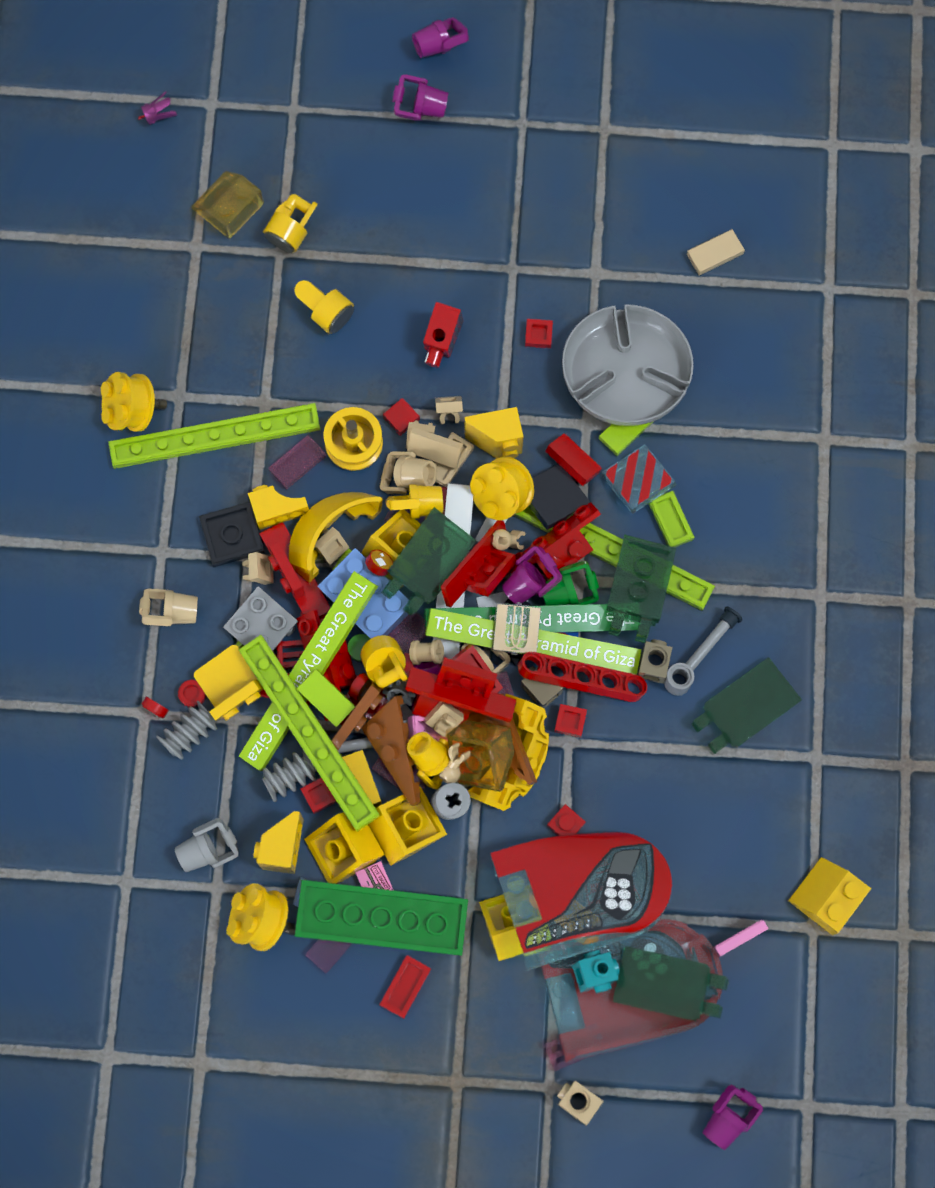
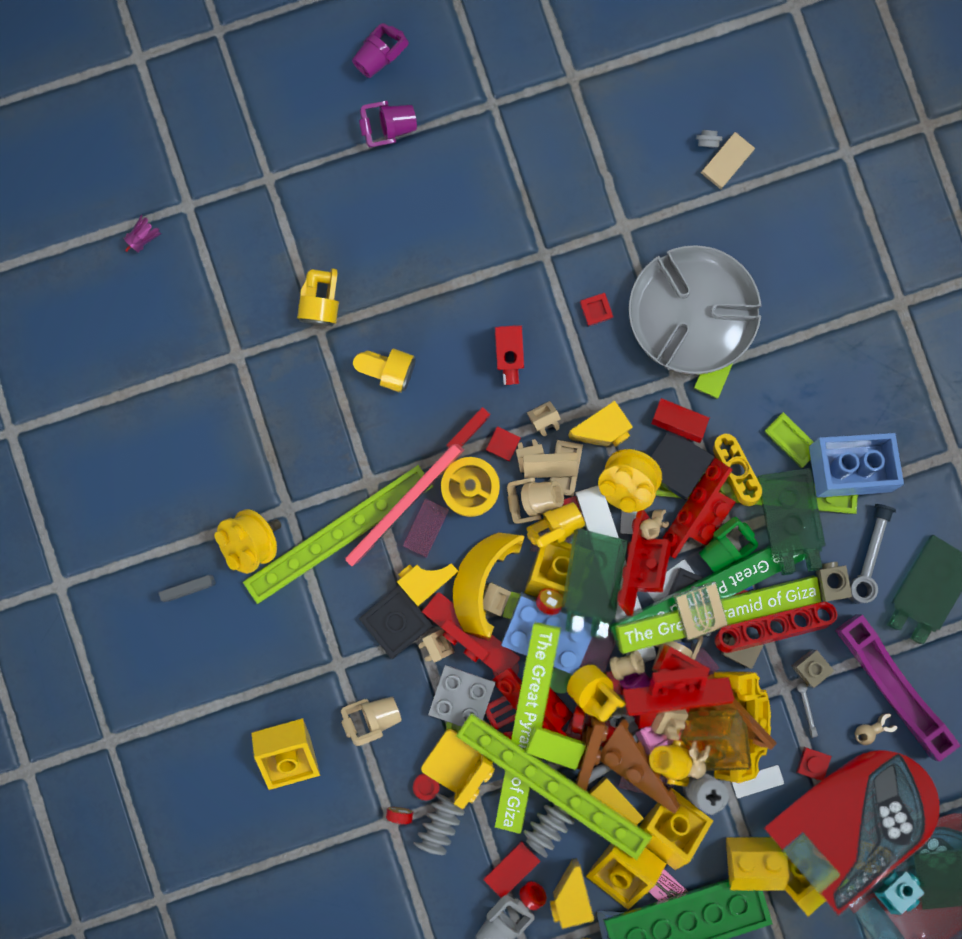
camera: 20 degrees left, 10 degrees up
(56, 425) = (187, 588): none -> dark grey tile
(75, 609) = (285, 754): none -> yellow slope
(229, 203) = (249, 300): clear yellow slope -> none
(237, 802) = (511, 869): none -> red tile
(245, 833) = (533, 895): none -> red tile
(285, 428) = (404, 504): none -> coral tile
(318, 795) = (581, 835): red plate -> none
(374, 390) = (470, 428): none -> red tile
(468, 890) = (756, 864): none -> yellow slope
(506, 819) = (764, 780): none -> white sticker
(527, 579) = (692, 558): magenta piece -> none
(570, 720) = (779, 669): red plate -> none
(585, 748) = (802, 688): none -> light grey hinge
(601, 731) = (812, 668): none -> dark tan brick
(602, 532) = (752, 483): none -> yellow beam
(632, 815) = (869, 732): none -> tan arm
(638, 479) = (747, 414): tile -> none
(673, 781) = (907, 703): none -> magenta arch
(705, 225) = (708, 138): none -> light grey plate
(719, 559) = (856, 465): none -> medium blue brick

